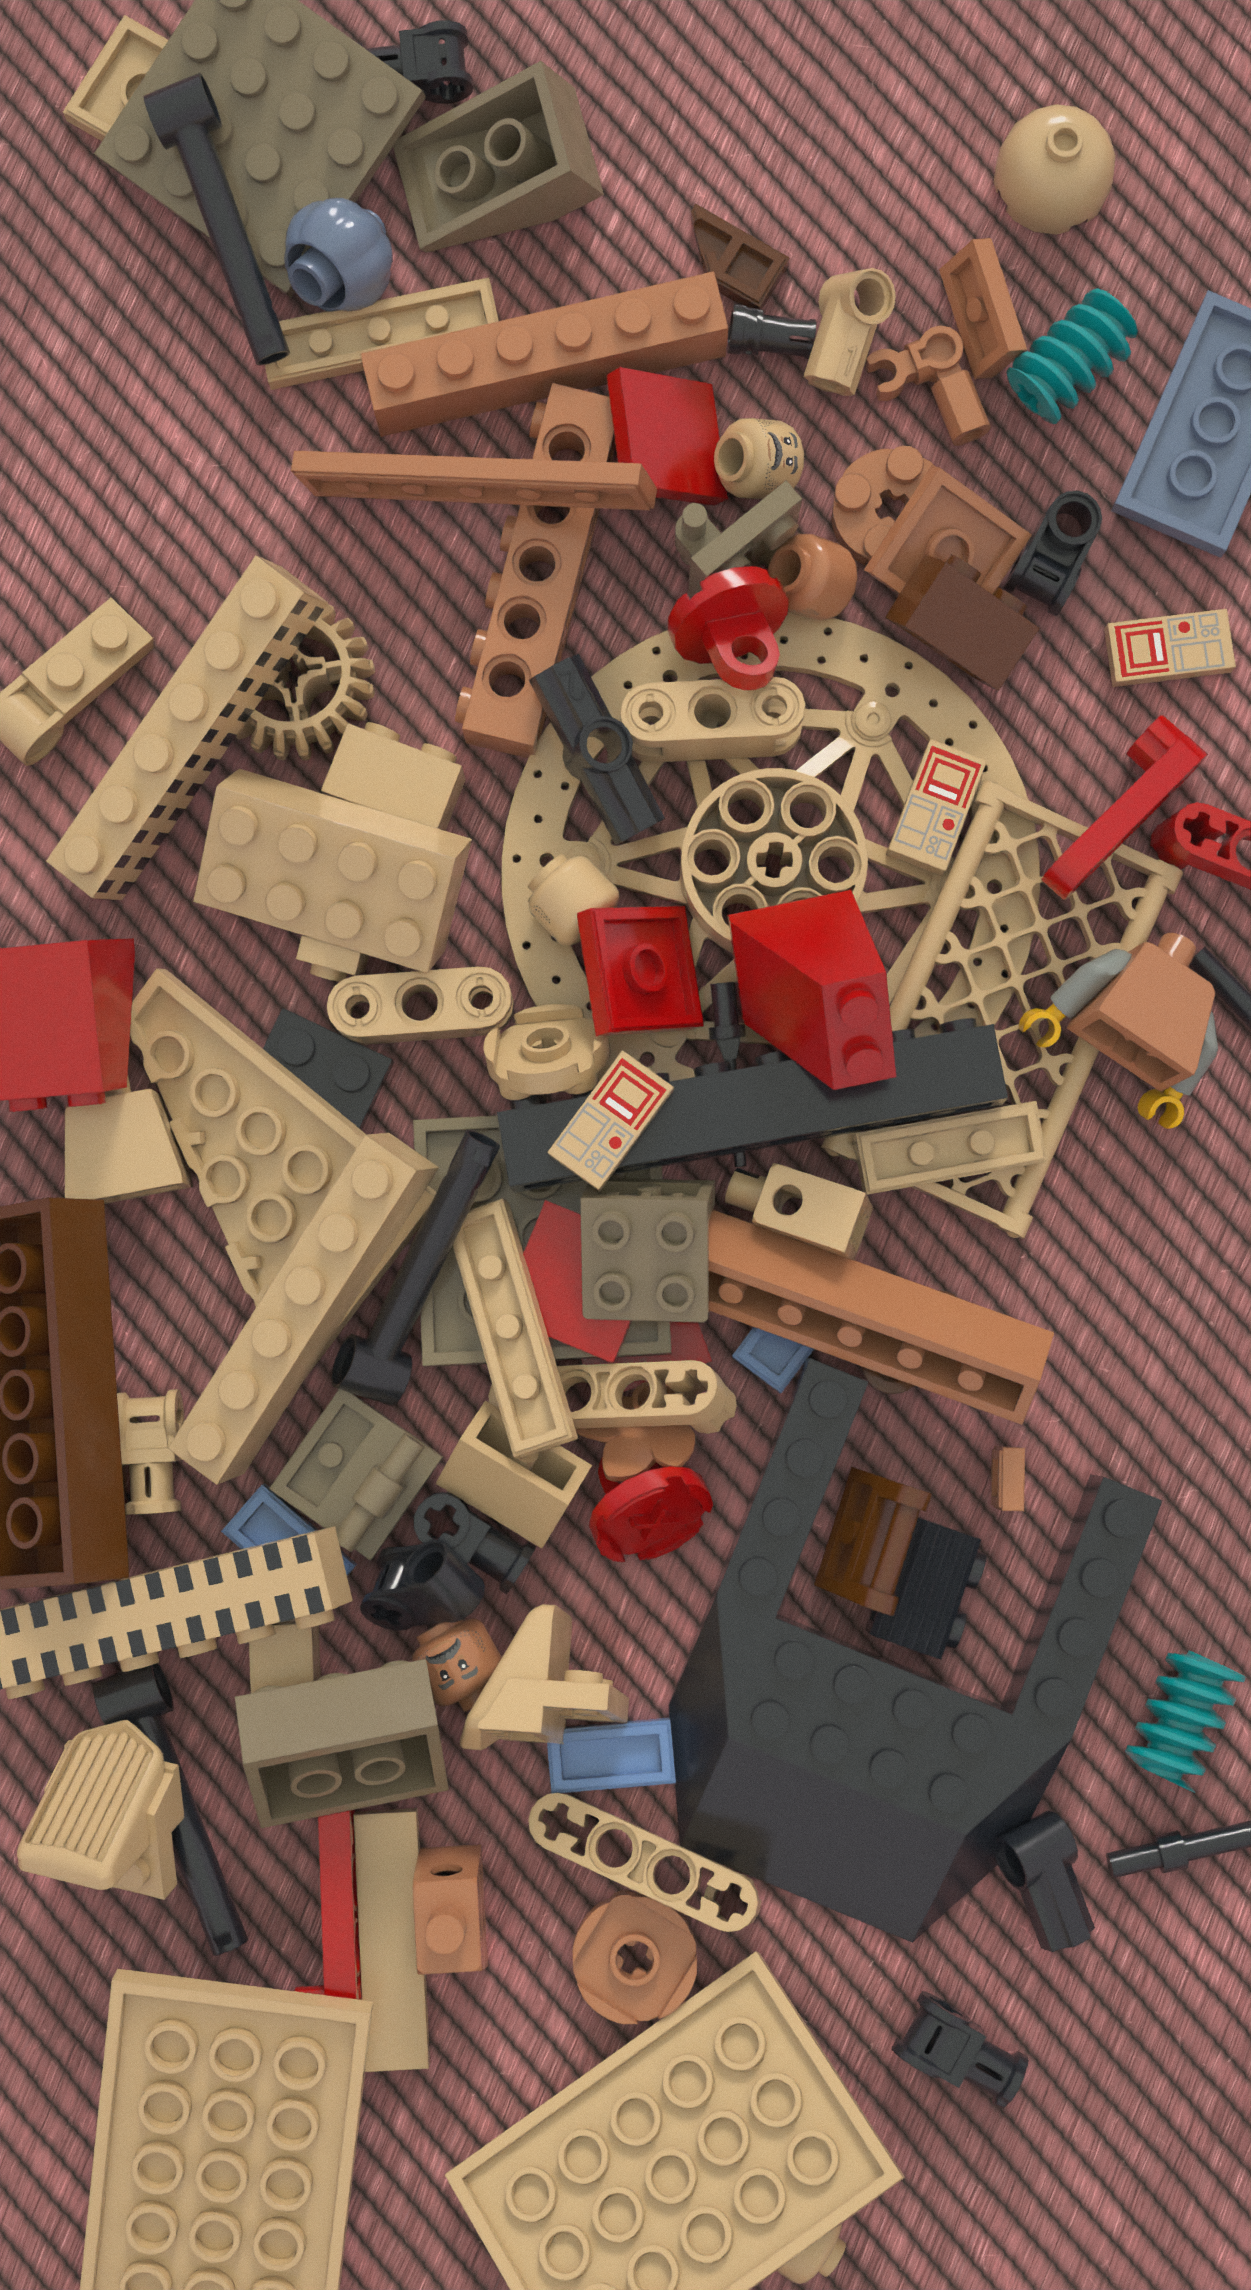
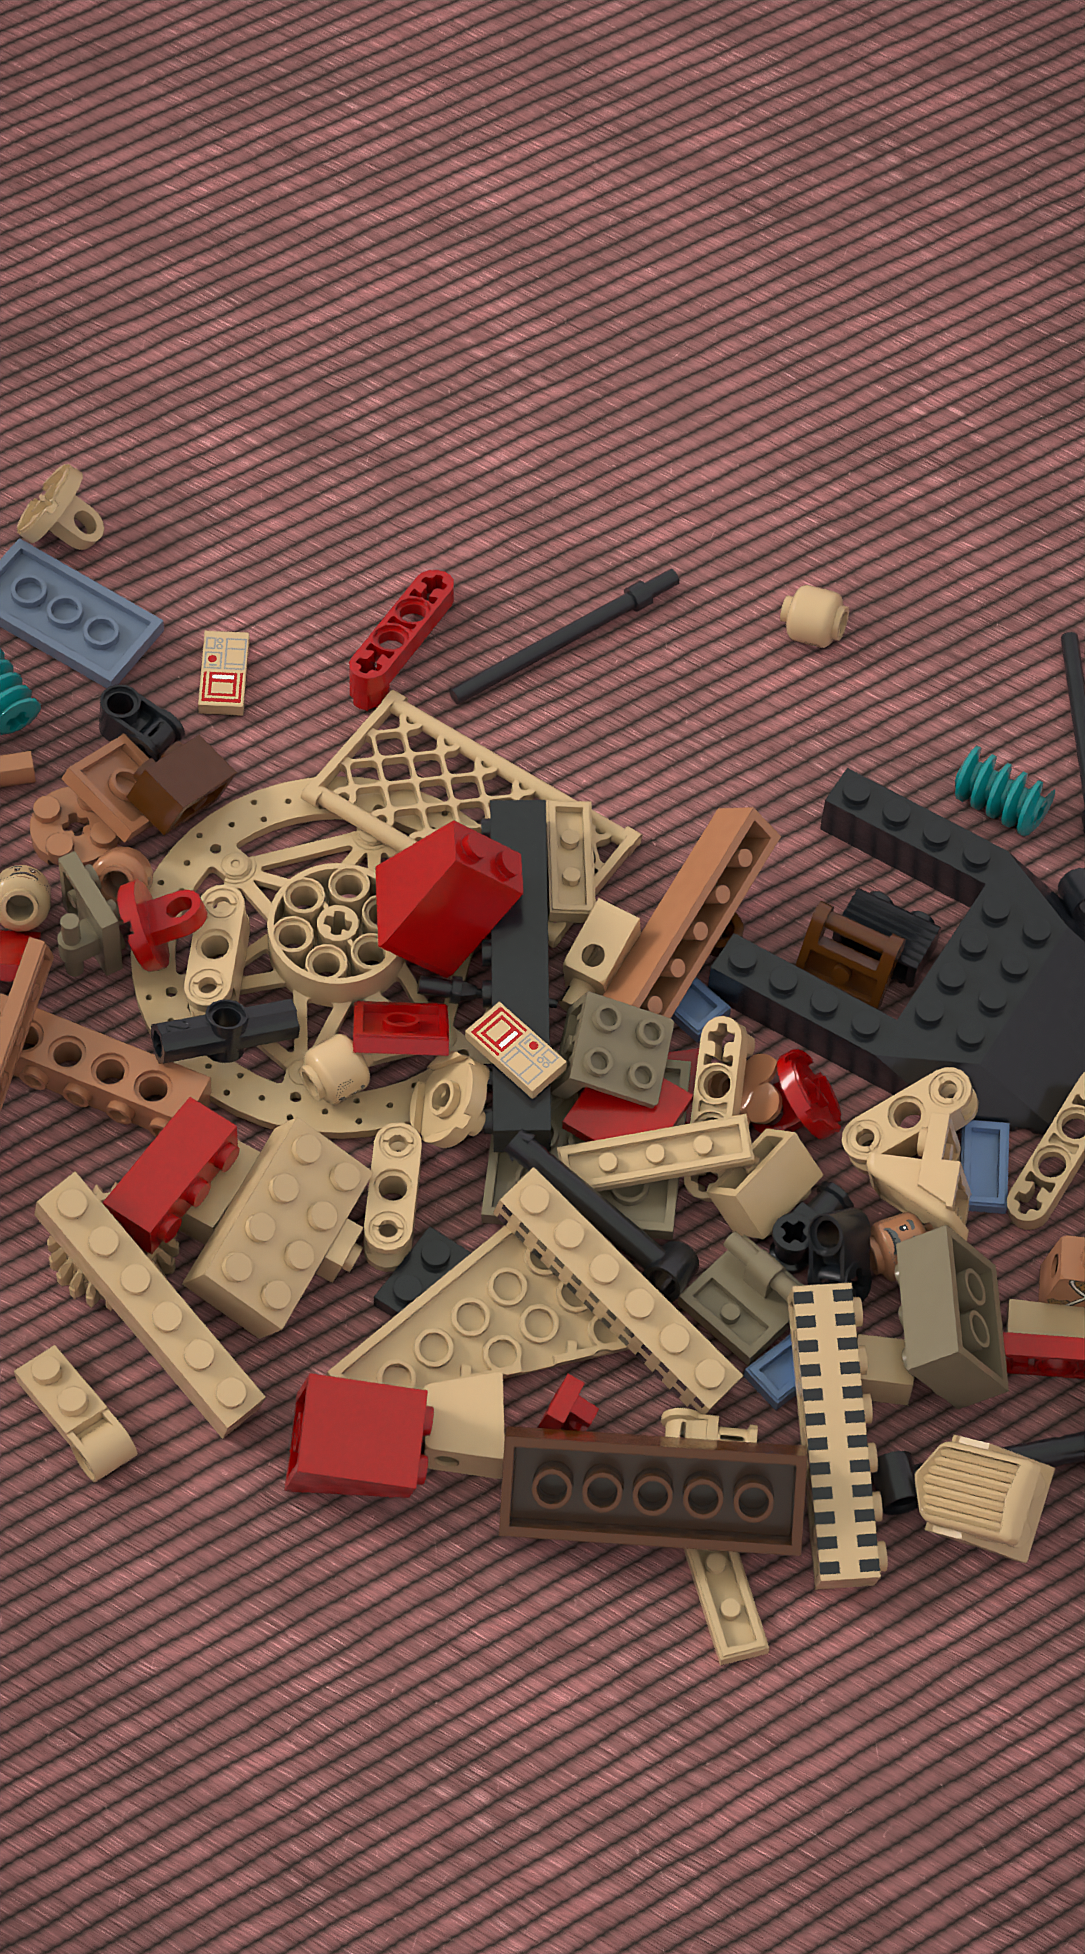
camera: 85 degrees left, 25 degrees down
(163, 1270) = (568, 1408): none -> red tile
(364, 722) = (173, 1174): none -> red brick
(609, 1630) = (882, 1123): none -> tan piece
(936, 807) = (313, 829): tan tile -> none
(1008, 1478) = (816, 870): nougat tile -> none
(1144, 1015) = (499, 719): nougat torso -> none
(1168, 762) = (319, 684): red beam -> none

